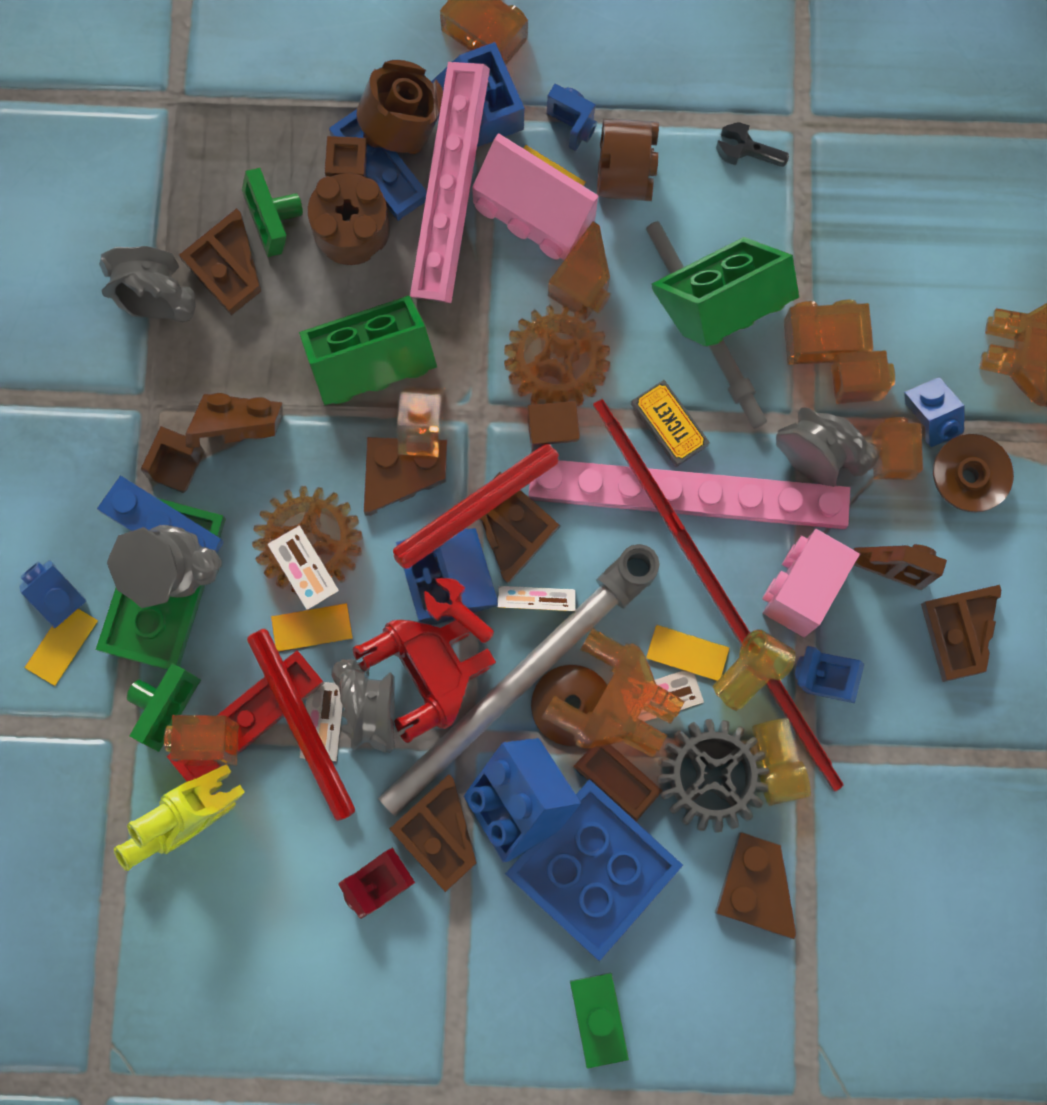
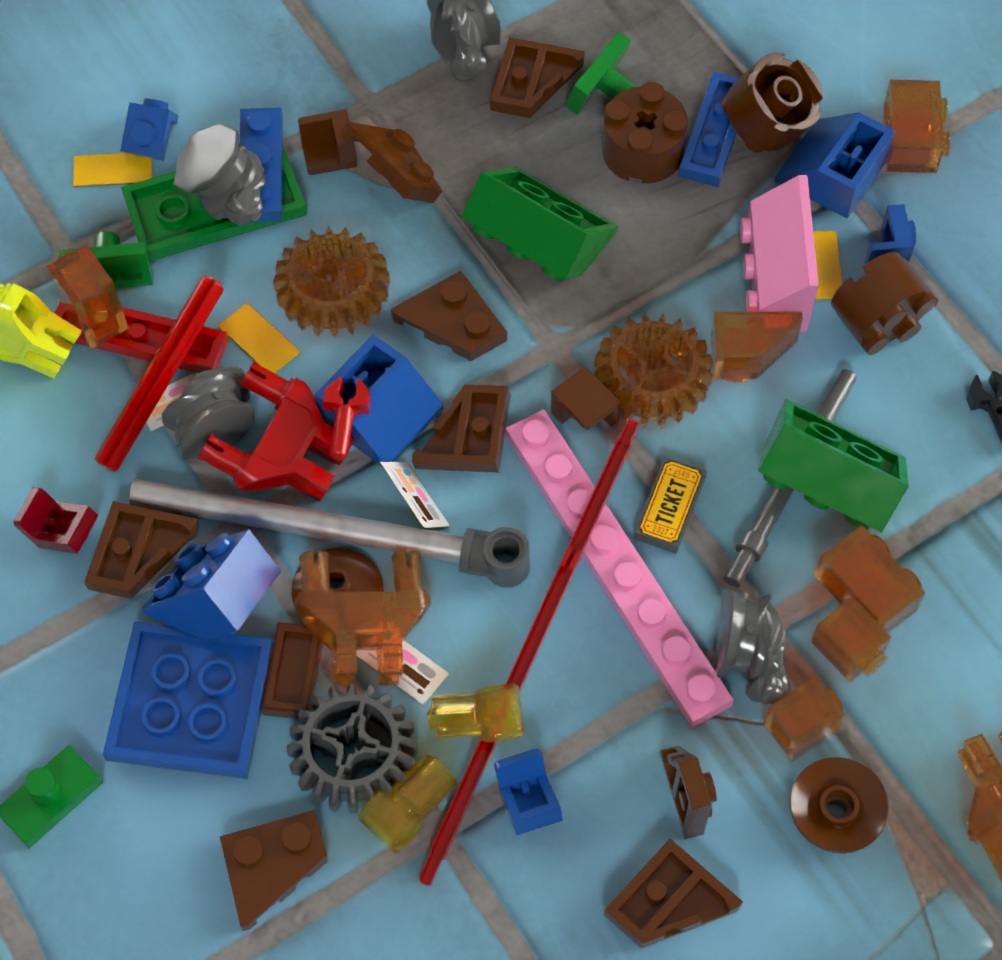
camera: 60 degrees right, 15 degrees down
(303, 567) = (300, 284): white sticker -> none
(345, 156) = (696, 94): reddish brown panel -> none
(420, 421) = (504, 292): clear orange slope -> none
(449, 181) = (739, 179): bright pink plate -> none
(475, 506) = (455, 376): red axle -> none
(687, 652) = (459, 655): yellow sticker -> none
(810, 584) = (601, 708): bright pink brick -> none
(937, 410) = (875, 733): blue bracket -> none

